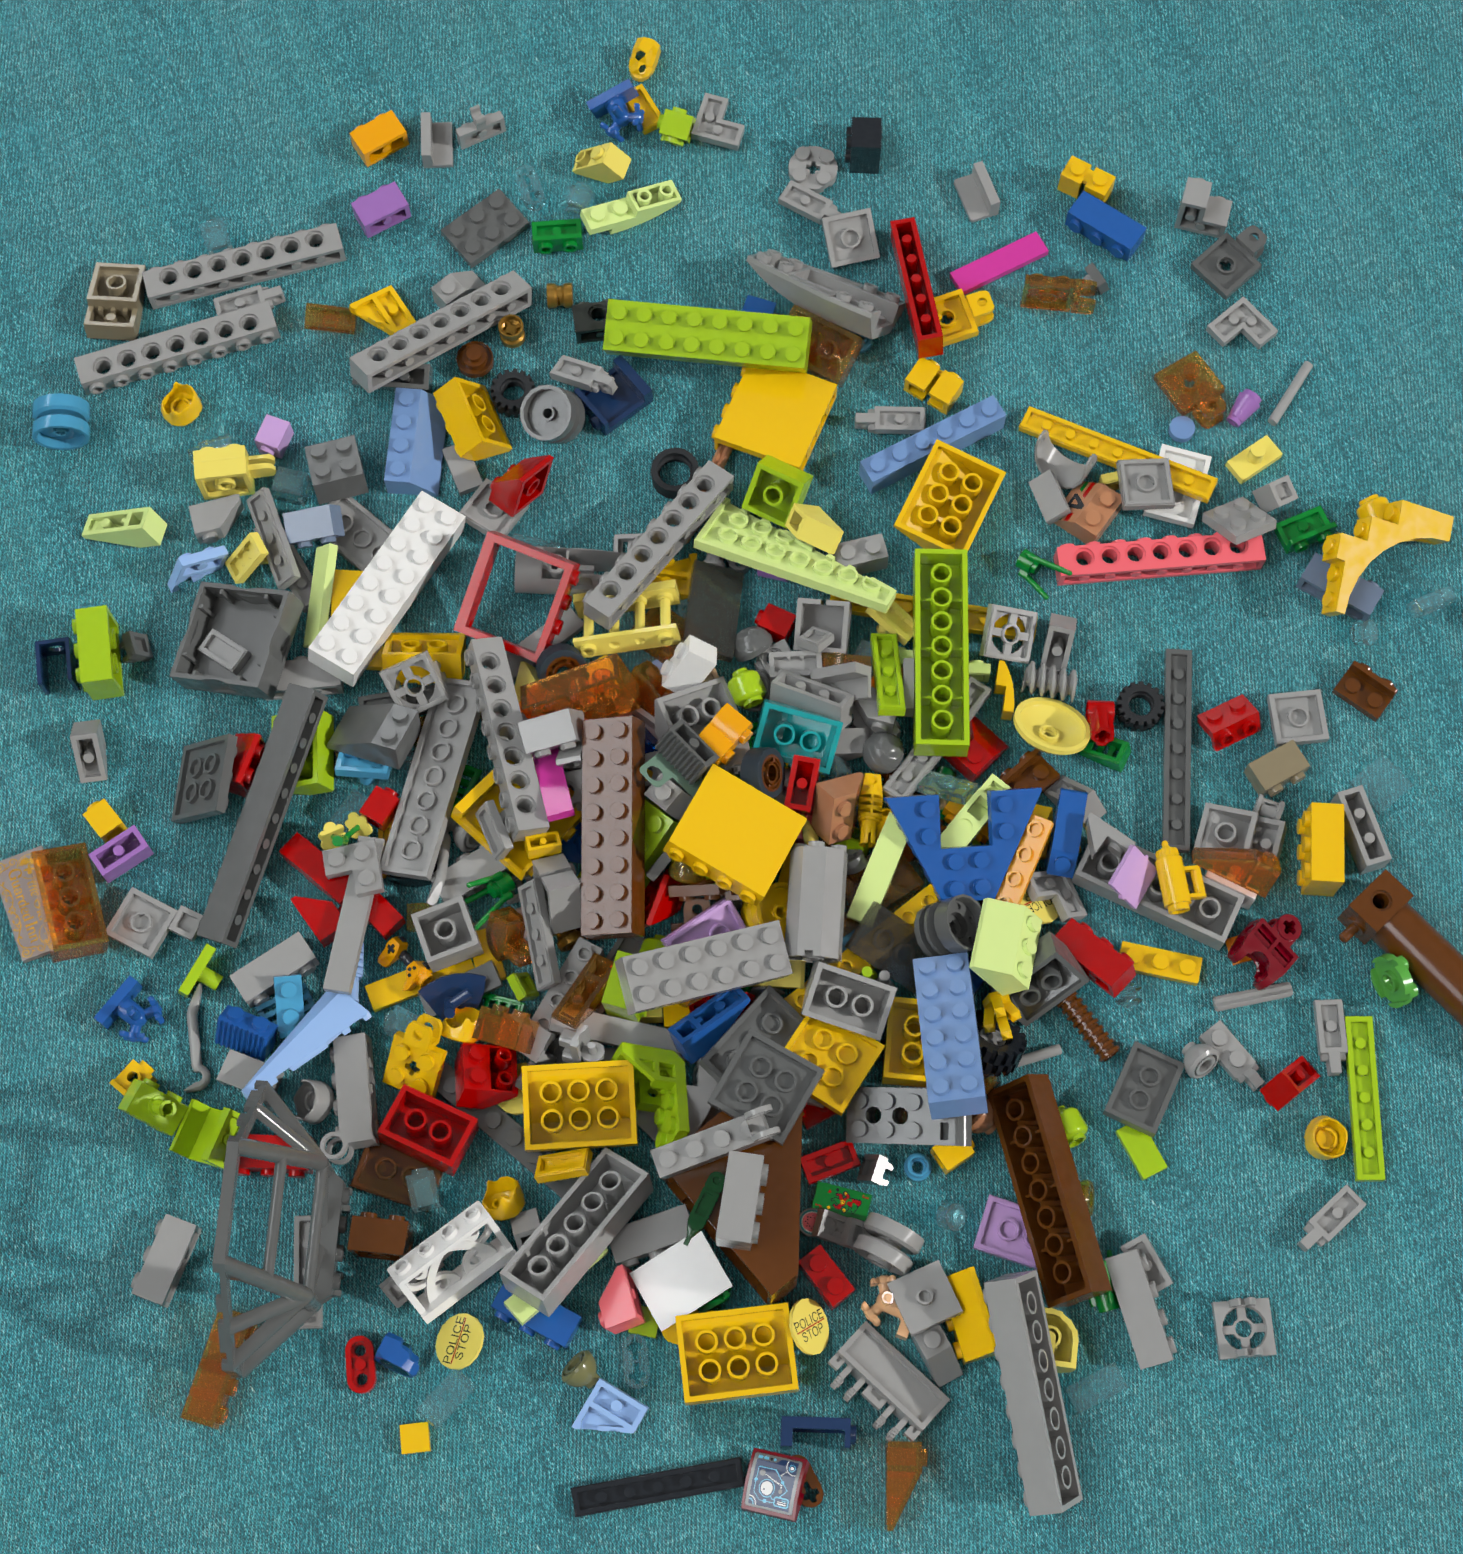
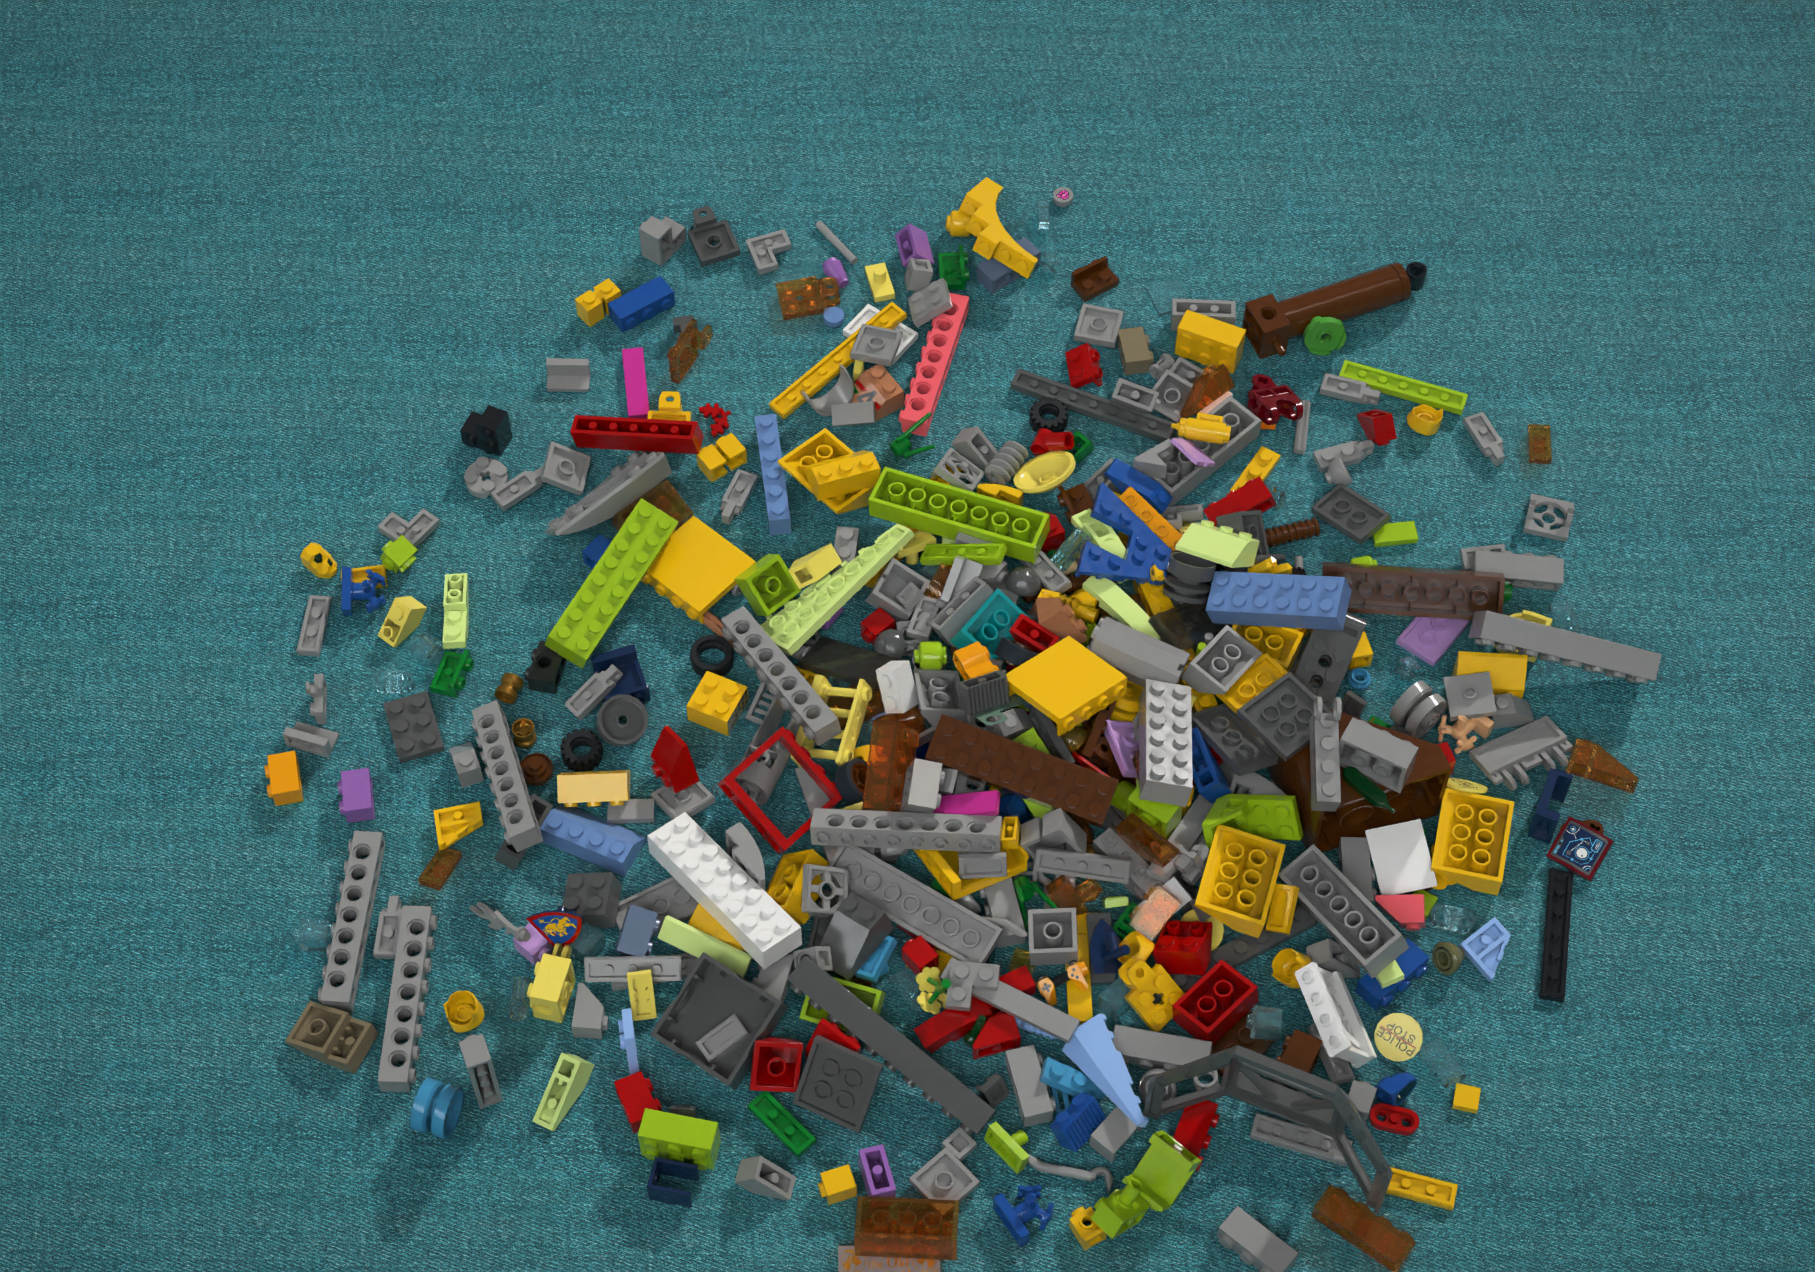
camera: 70 degrees left, 15 degrees down
(97, 439) = (480, 1070): none -> light grey brick
(135, 600) = (635, 1096): none -> red brick
(156, 744) = (781, 1123): none -> green plate
(212, 711) = (776, 1064): none -> red slope
(257, 936) = (993, 1090): none -> dark grey tile
(269, 418) = (498, 921): none -> light grey piece
(281, 444) = (557, 925): none -> shield
(291, 1414) = (1422, 1189): none -> yellow tile
(315, 893) = (971, 1036): none -> dark green piece
(340, 705) = (819, 954): none -> light grey brick
(369, 1320) = (1362, 1095): none -> light grey brick
(426, 600) = (745, 852): none -> light grey slope
(568, 89) = (314, 626): none -> light grey tile
(617, 499) = (717, 703): none -> yellow brick
(941, 890) = (1156, 574): none -> yellow piece
(943, 509) = (842, 474): none -> yellow slope
(995, 358) = (719, 422): none -> red animal
(1034, 1012) = (1279, 557): none -> dark grey piece
(1203, 788) = (1134, 396): none -> light grey slope
(1314, 476) = (913, 244): none -> medium lavender brick
(1350, 1288) = (1539, 444): none -> clear orange plate

